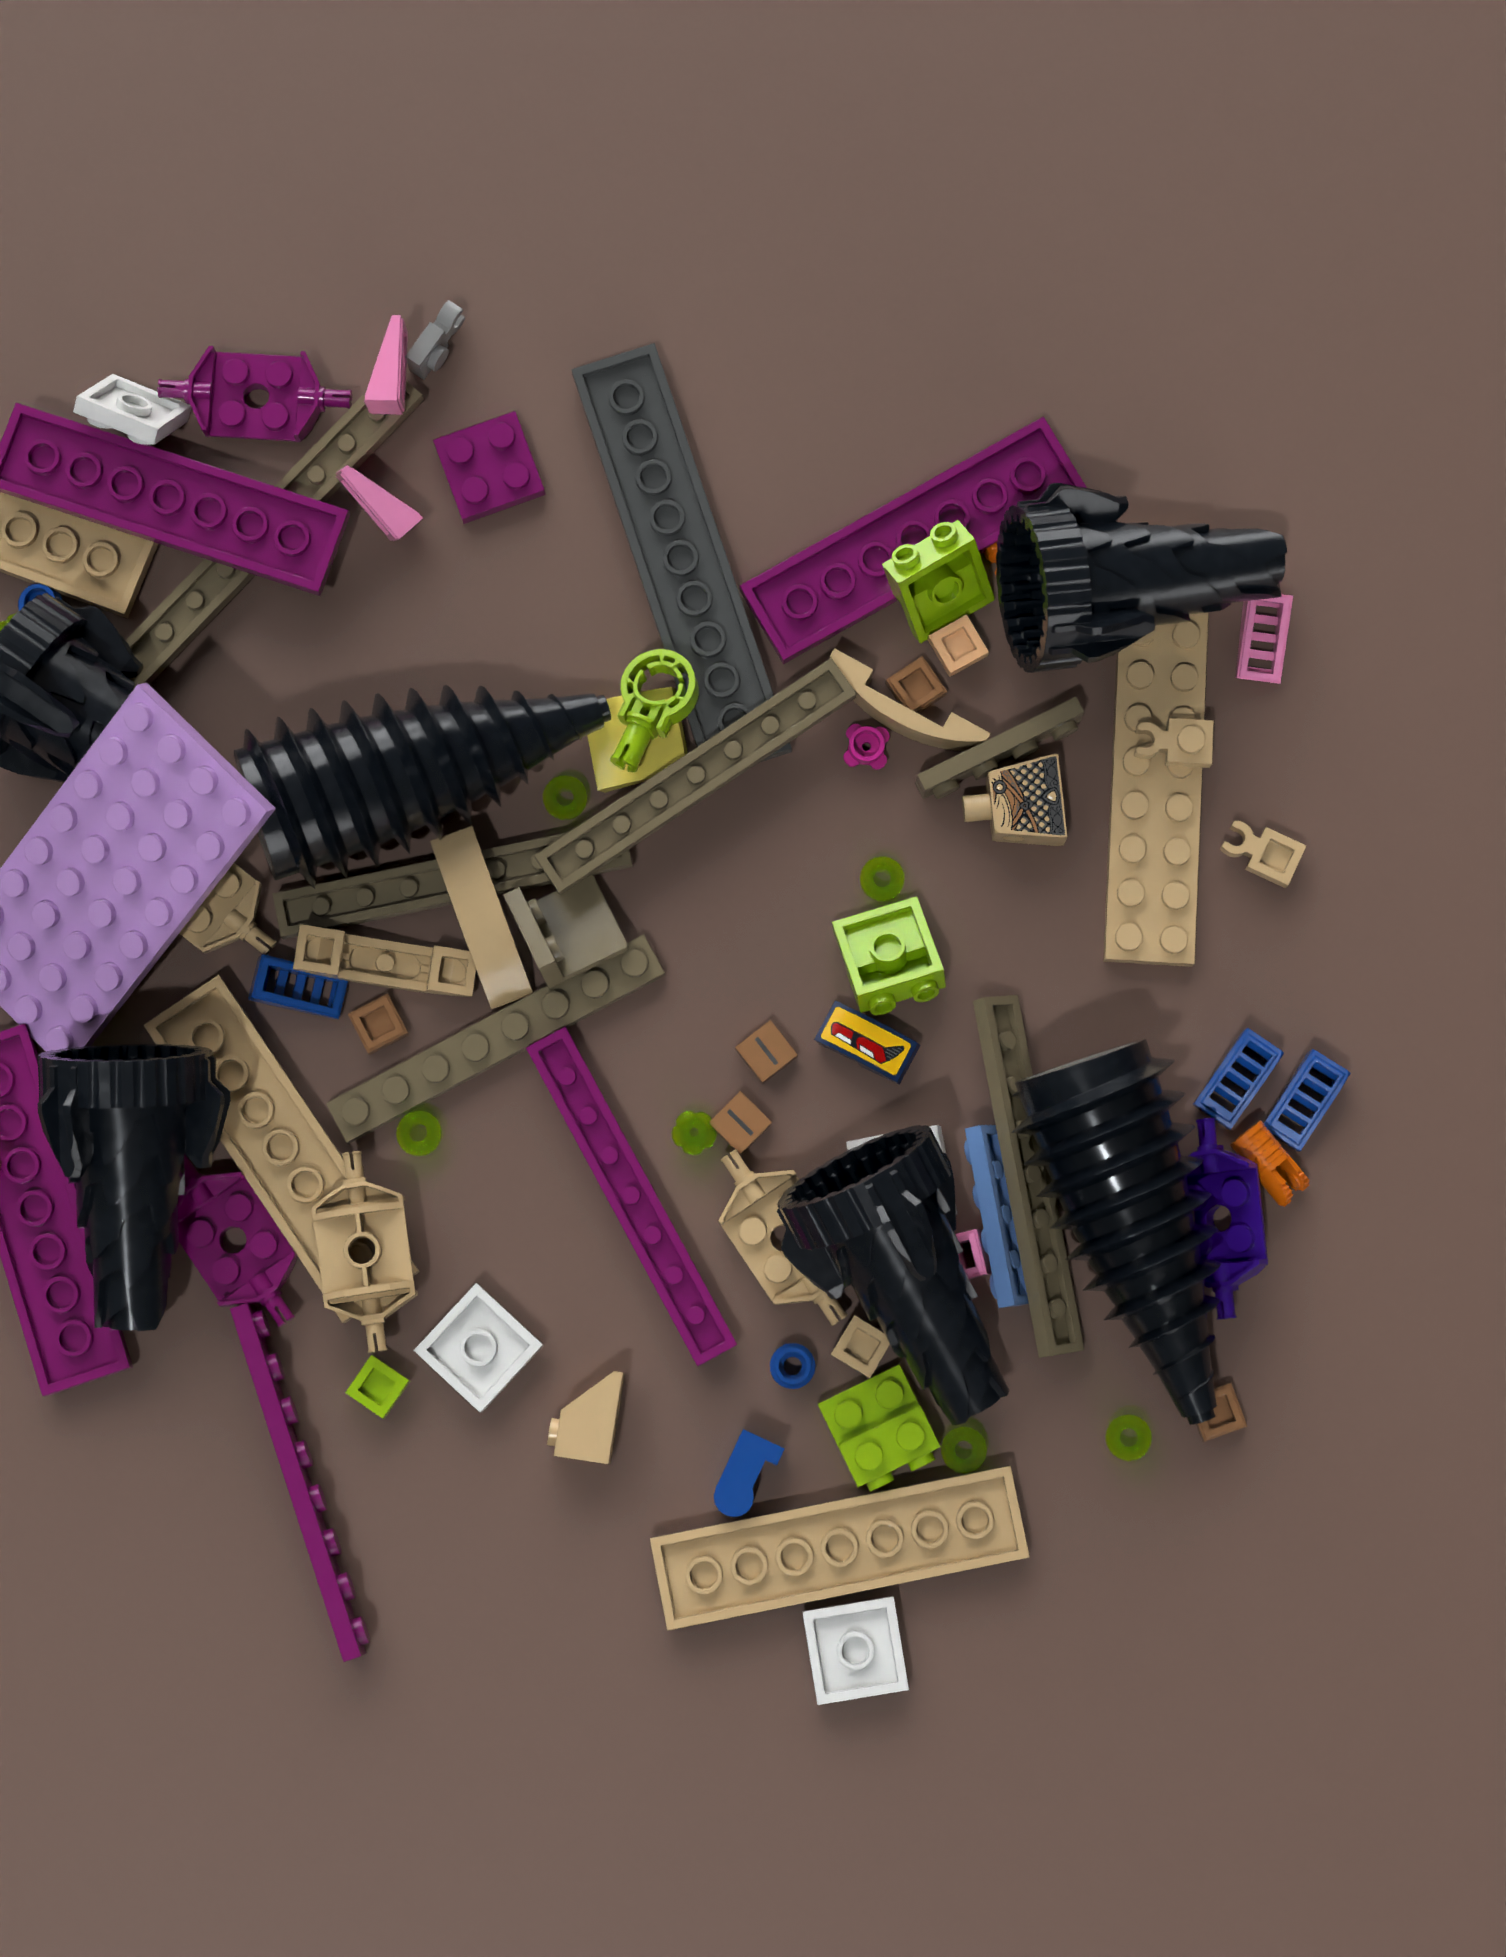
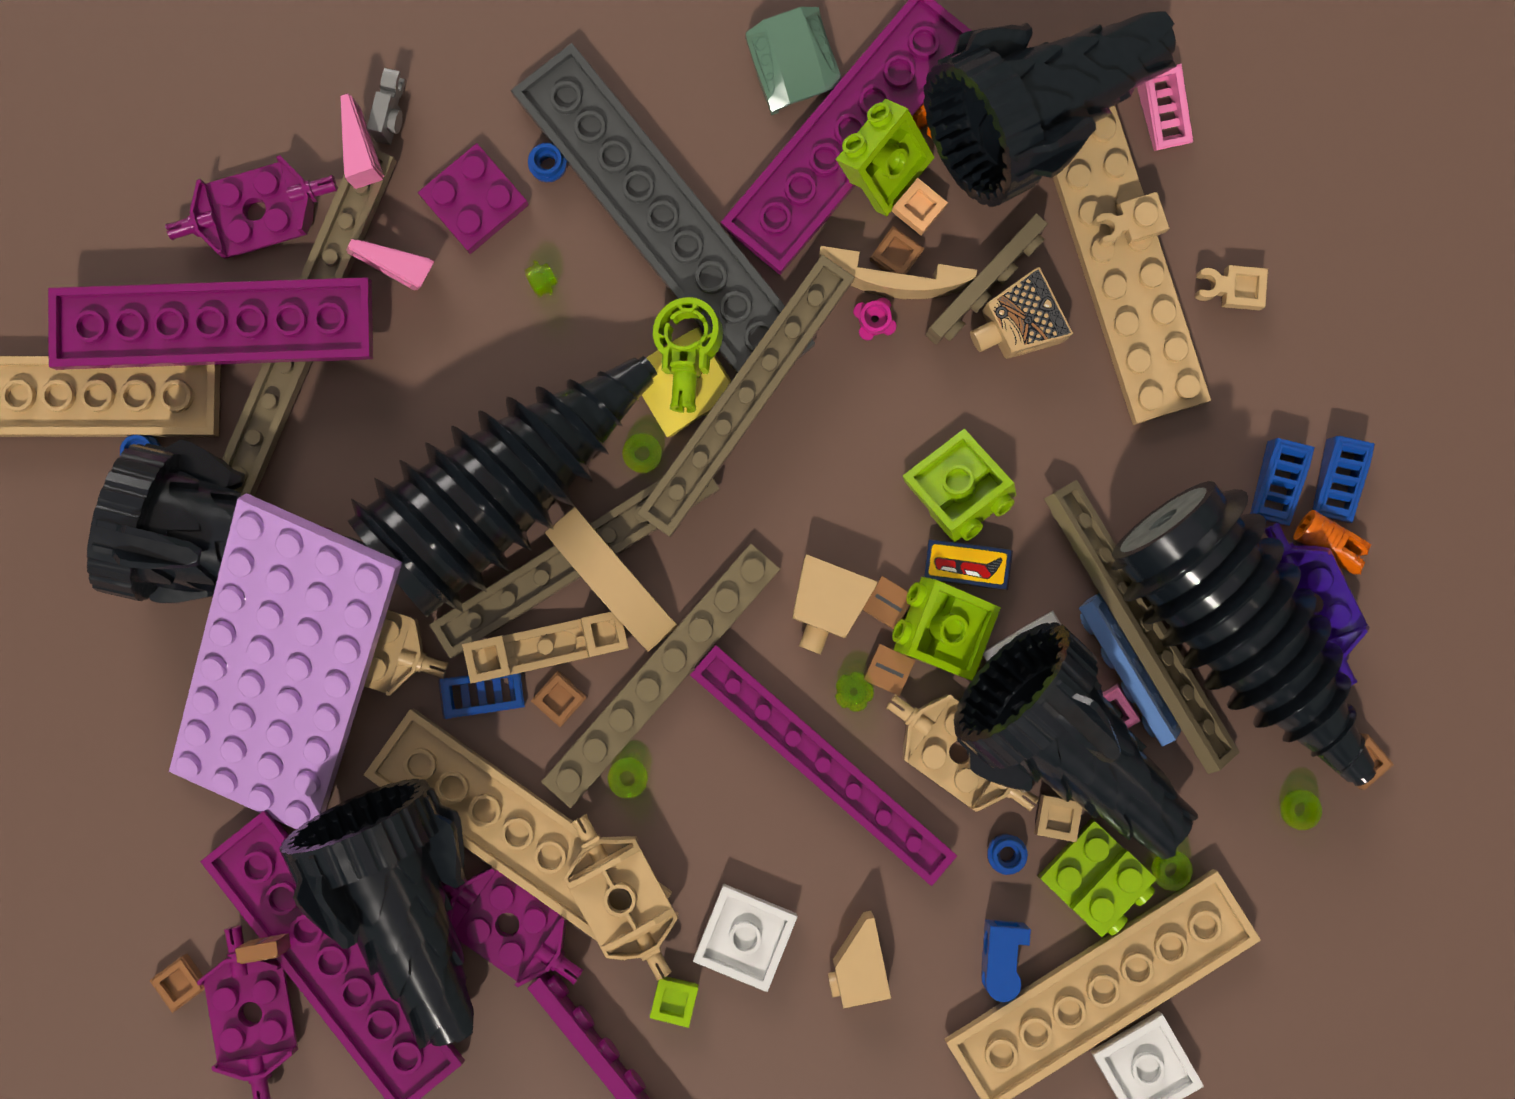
camera: 25 degrees left, 5 degrees up
(131, 410) = (150, 259): white plate -> none
(528, 576) = (540, 278): none -> clear neon green plate
(568, 930) = (688, 564): dark tan bracket -> none
(578, 445) = (538, 155): none -> blue plate
(702, 1025) = (828, 601): none -> tan torso
(816, 1098) = (945, 627): none -> lime plate
(882, 441) = (792, 57): none -> sand green slope
(885, 865) = (937, 415): clear neon green plate -> none

